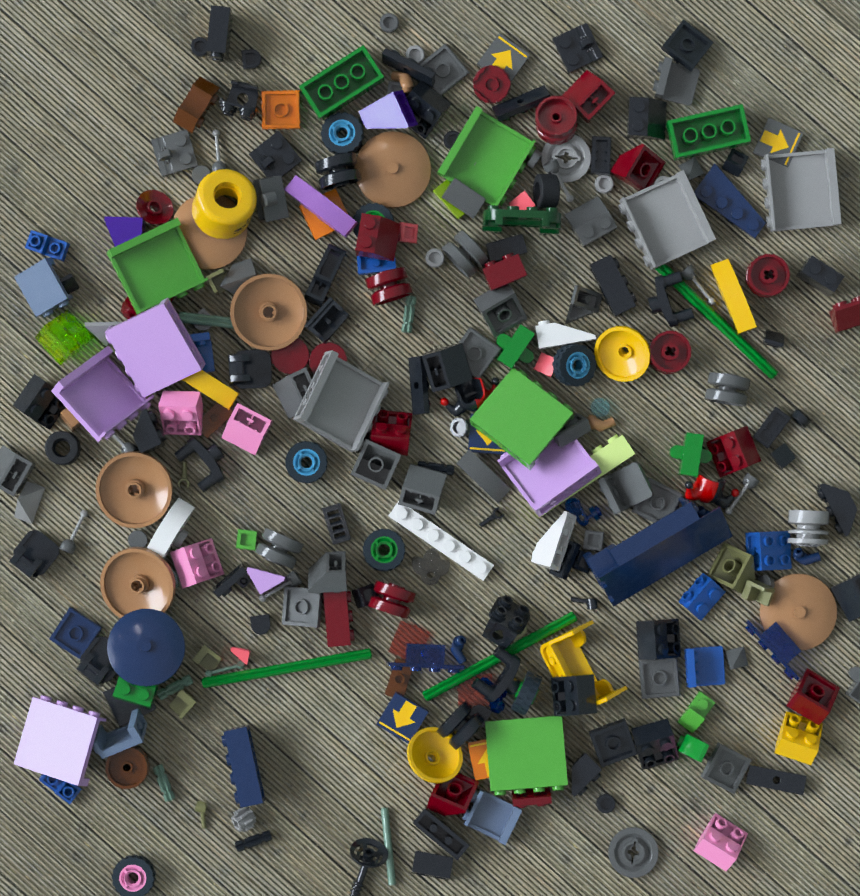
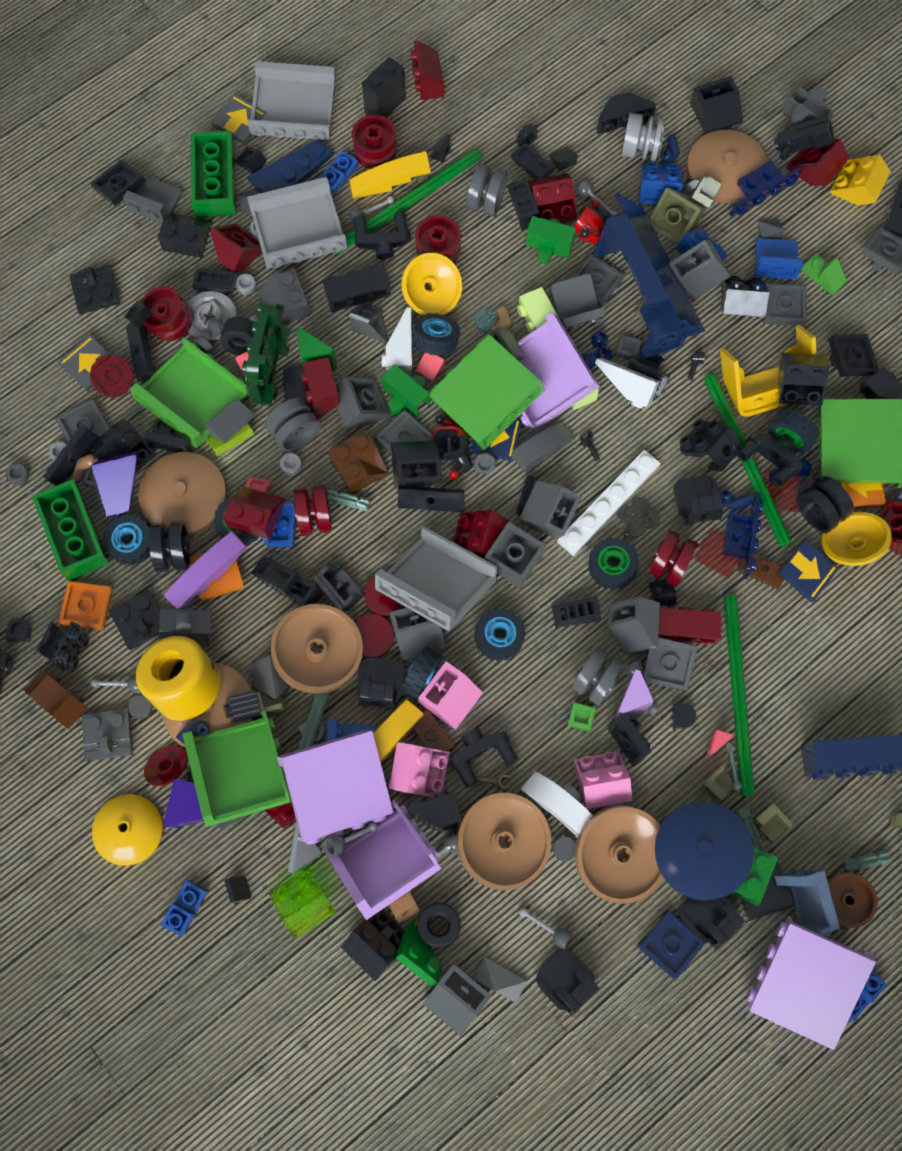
camera: 85 degrees left, 15 degrees down
(35, 436) = (419, 956): none -> green wing
(43, 288) = (235, 918): sand blue panel -> none
(105, 199) = (142, 833): none -> yellow dish
(109, 356) = (336, 844): none -> dark grey hinge
(187, 224) = (198, 728): none -> dark blue arm
(209, 260) = (242, 707): none -> black brick
(260, 402) = (421, 672): none -> black wheel
(437, 147) = (167, 442): none -> black plate
(442, 317) = (358, 462): none -> reddish brown slope
(453, 616) = (698, 499): none -> black piece
(535, 258) = (314, 349): none -> green slope
(546, 97) = (138, 314): none -> black slope
(589, 95) = (144, 275): dark red slope -> none
(655, 744) = (857, 313): black slope -> none
(675, 594) = (700, 269): none -> dark grey slope
(692, 747) = (865, 274): green slope -> none
(722, 424) = (522, 202): none -> black hinge
(734, 247) = (340, 170): none -> blue slope
(833, 680) = (808, 134): none -> black piece

